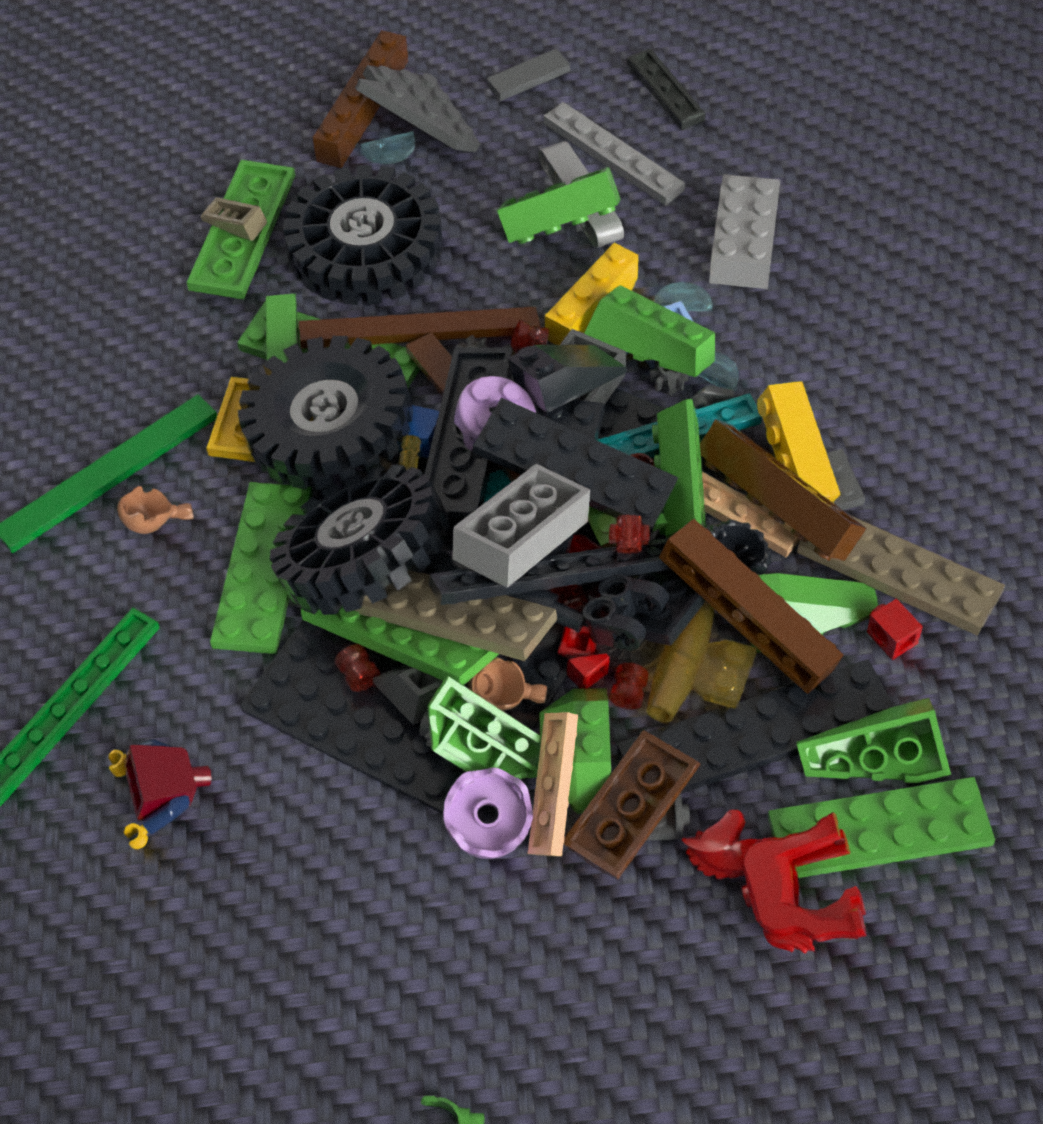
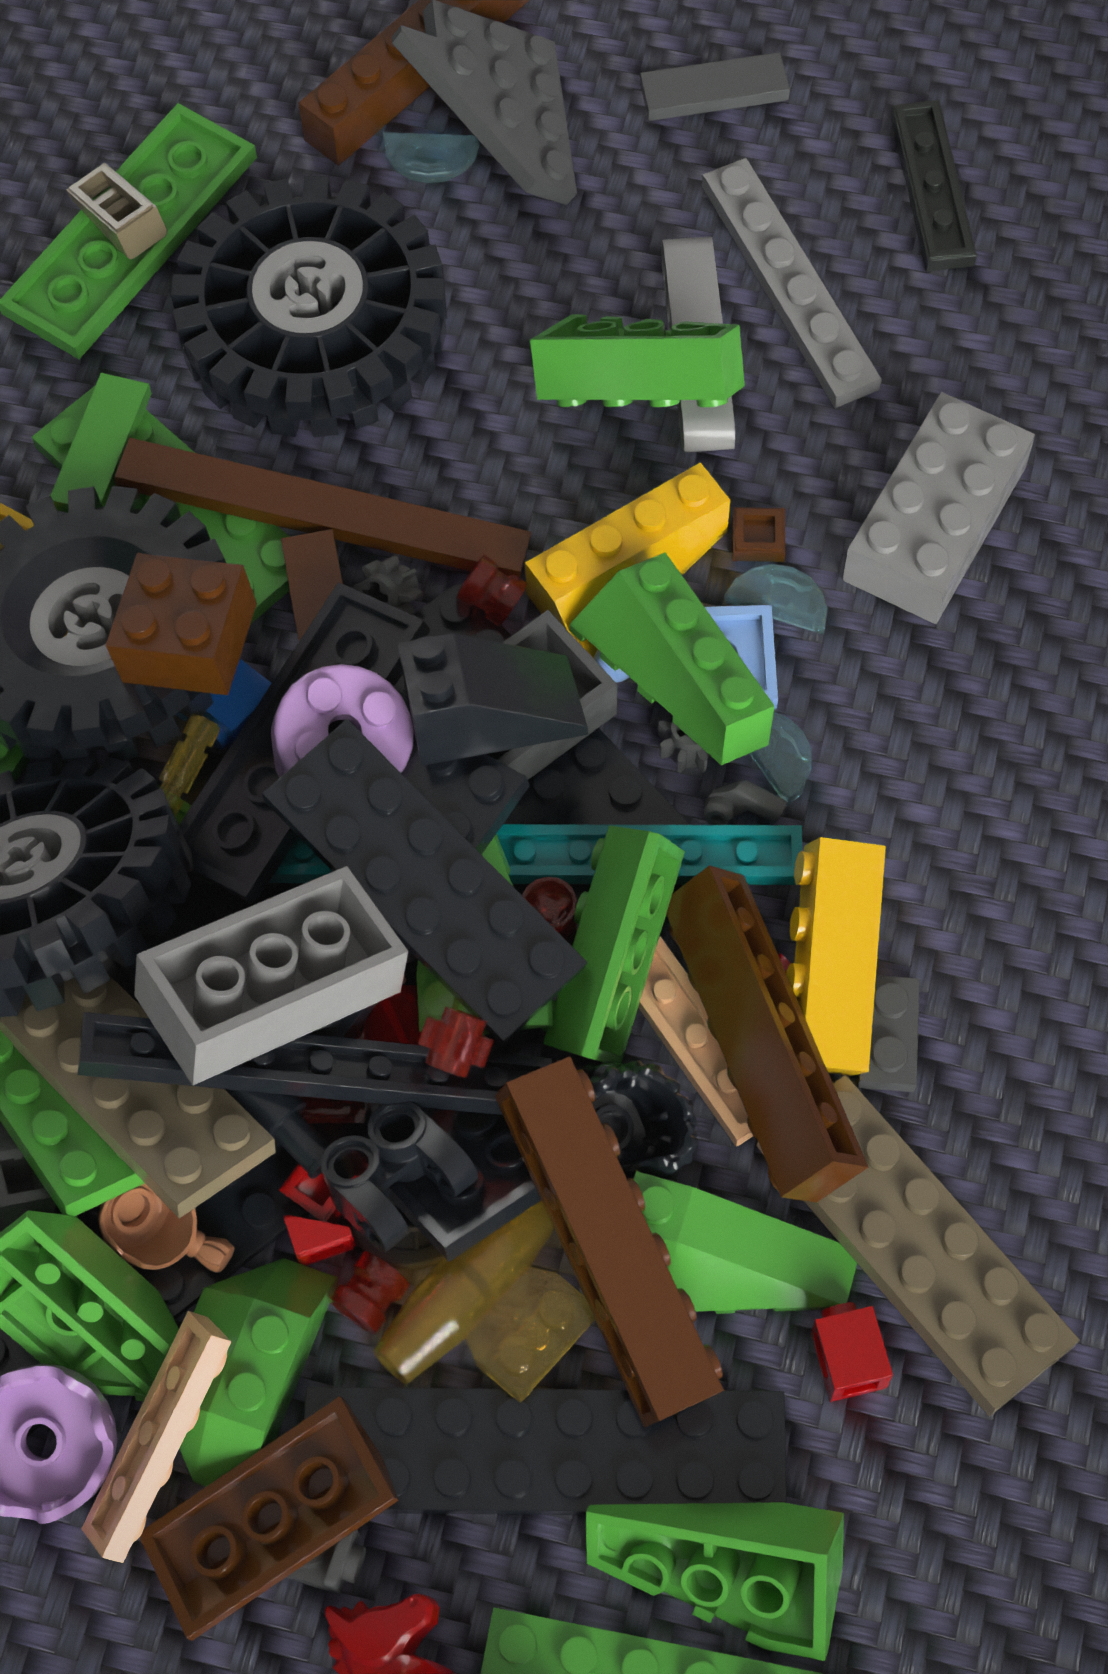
camera: 20 degrees right, 10 degrees up
(387, 382) = (181, 624): none -> reddish brown brick
(655, 273) = (758, 534): none -> reddish brown tile

